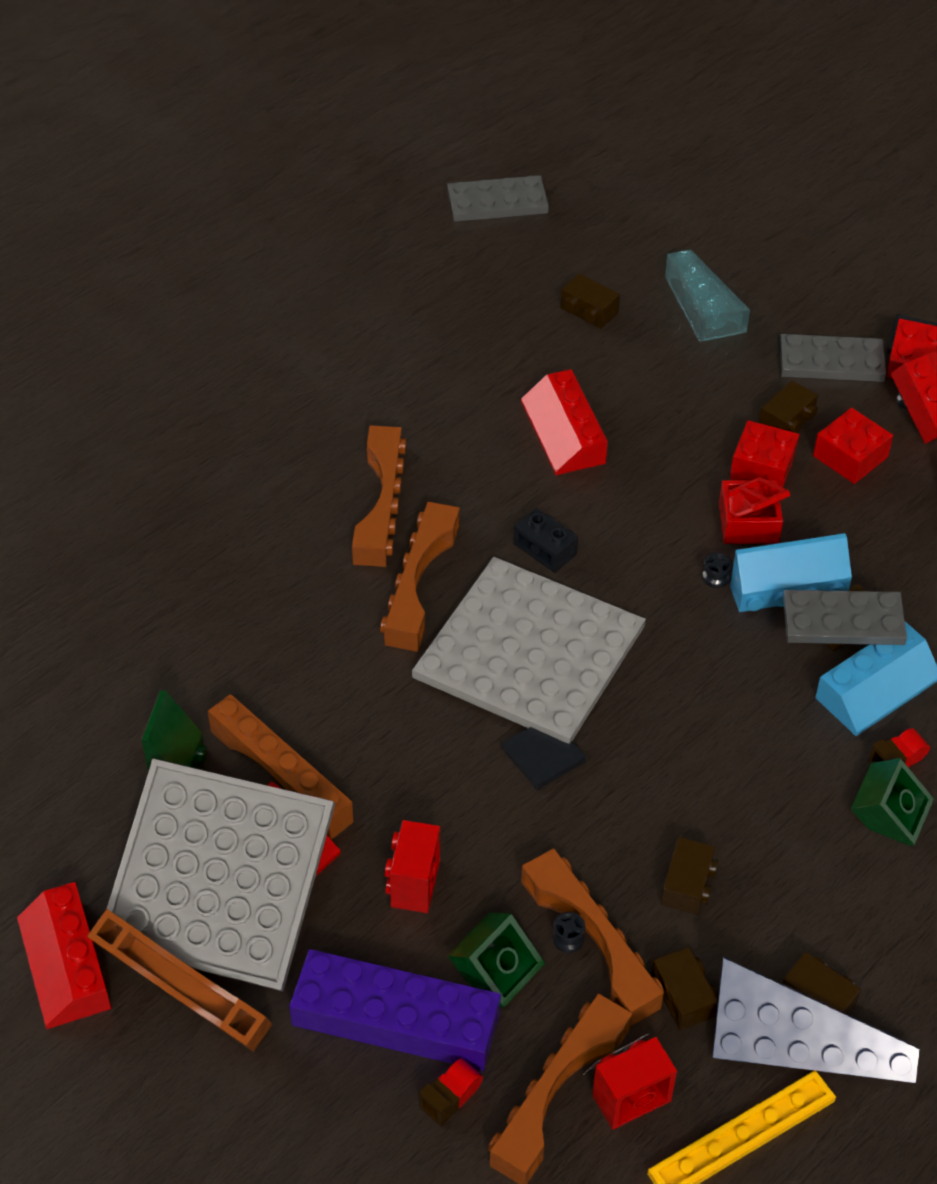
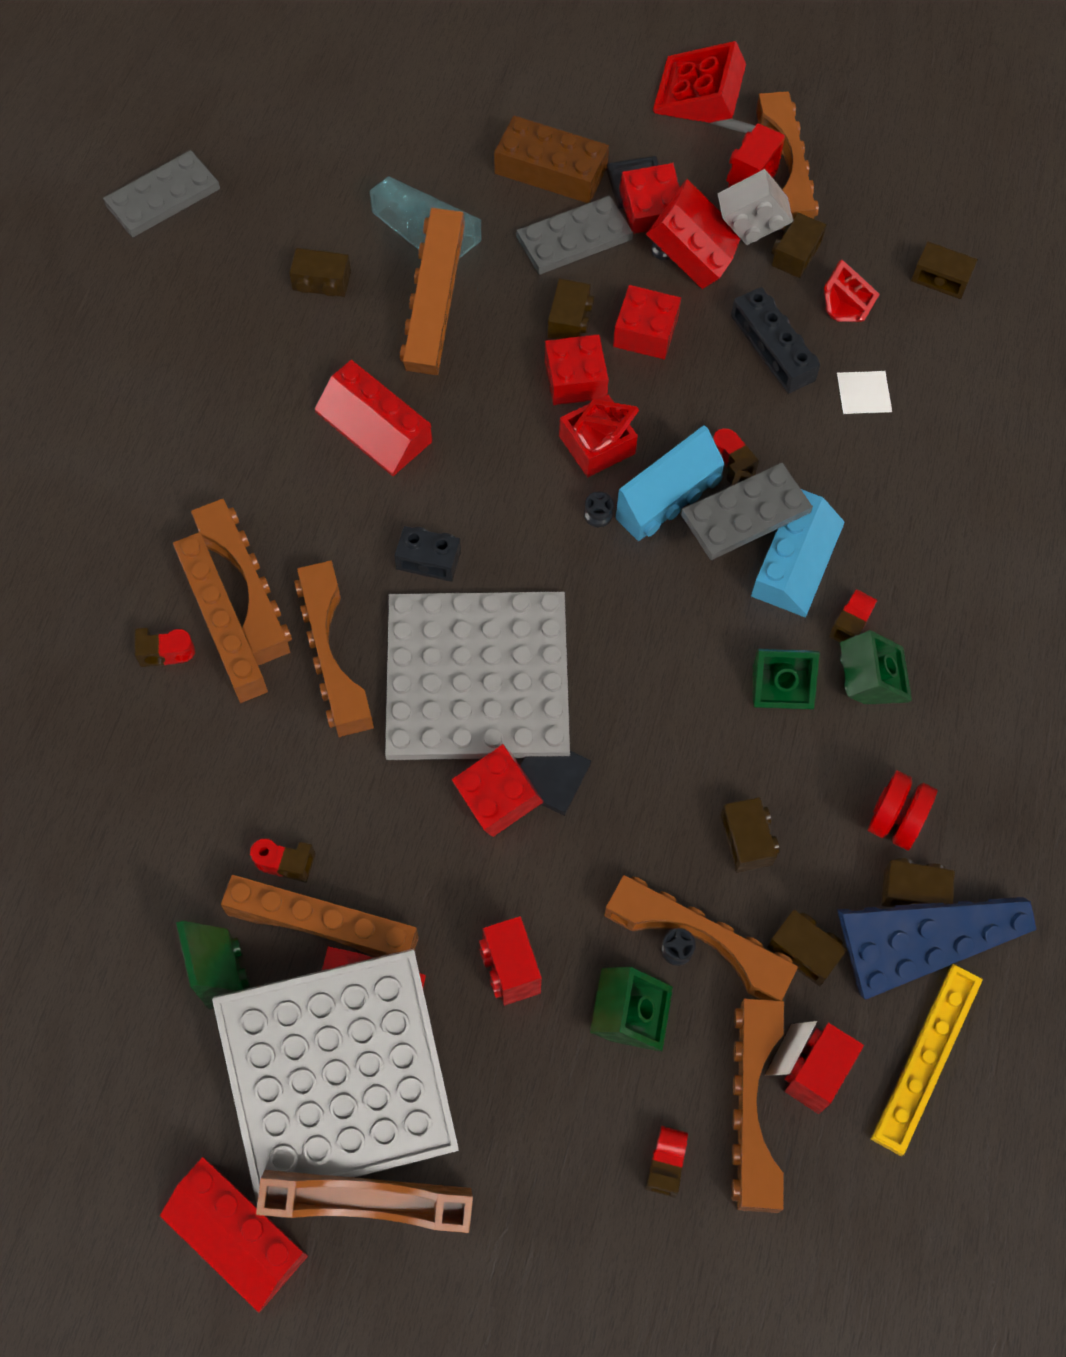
camera: 30 degrees left, 15 degrees up
(280, 710) = (283, 860): none -> leg
(285, 516) = (163, 648): none -> leg
(343, 513) = (220, 618): none -> dark orange brick
(395, 1009) = (575, 1111): dark purple brick -> none
(487, 737) = (497, 790): none -> red brick
(673, 346) = (434, 291): none -> dark orange brick
(802, 769) = (785, 678): none -> dark green slope
(841, 916) = (905, 811): none -> red wheel
(846, 292) = (551, 159): none -> reddish brown brick
(867, 572) = (734, 453): none -> leg

